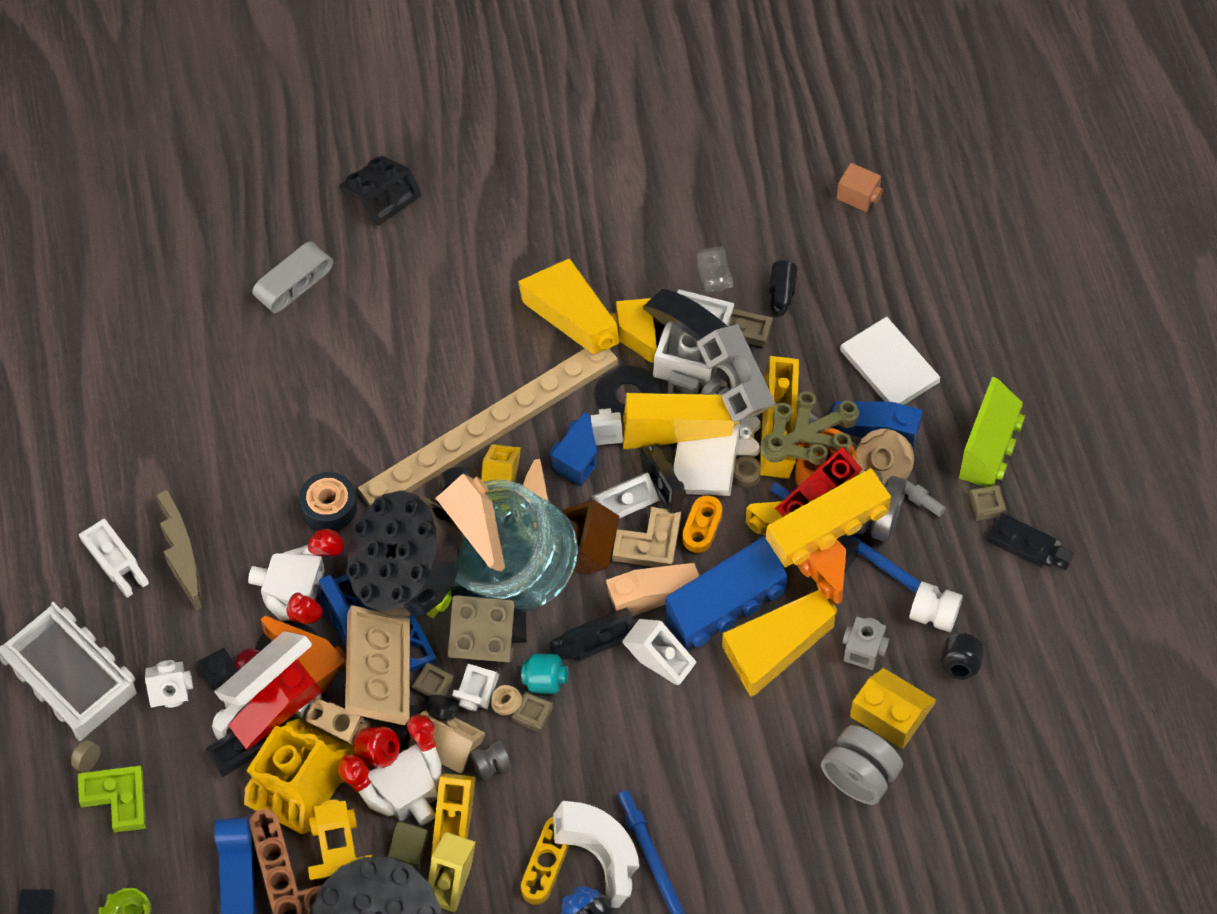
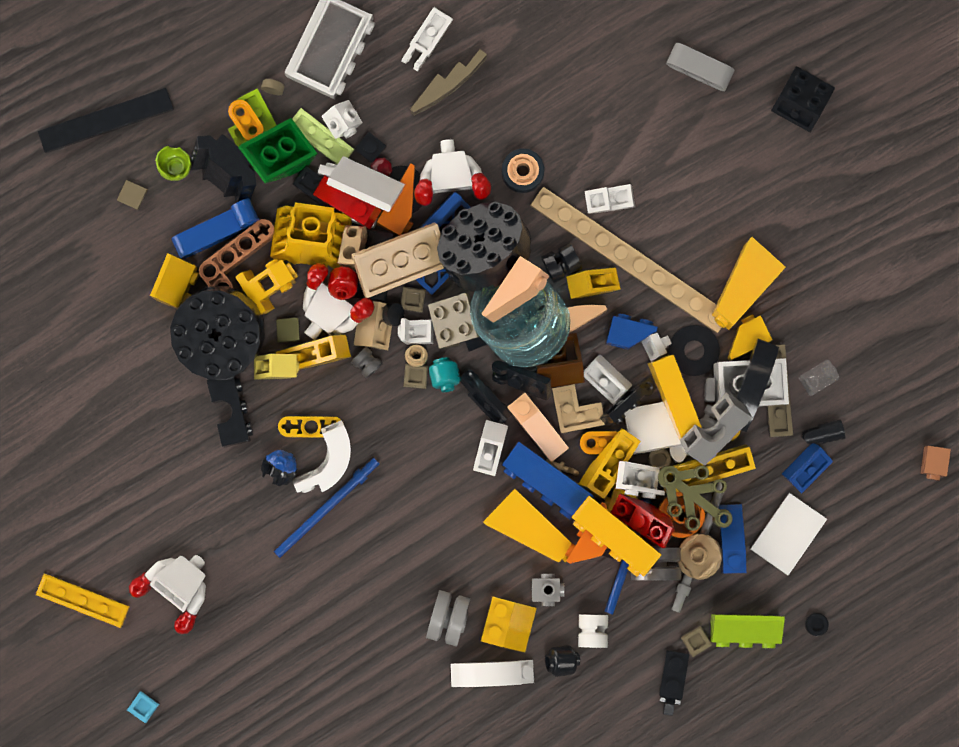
camera: 70 degrees right, 25 degrees up
(113, 793) = (245, 121): none -> light orange plate
(161, 841) = (224, 166): none -> black slope
(172, 760) = (279, 152): none -> green slope
(176, 724) = (321, 137): none -> yellowish green tile
(406, 422) = (609, 199): none -> white slope
(587, 582) = (522, 379): none -> black hinge
(731, 516) = (604, 469): none -> yellow slope
(765, 488) = (637, 479): none -> white bracket
(815, 320) = (807, 467): none -> blue slope
(950, 743) = (492, 673): none -> white arch
(1010, 369) = (816, 624): none -> black tile

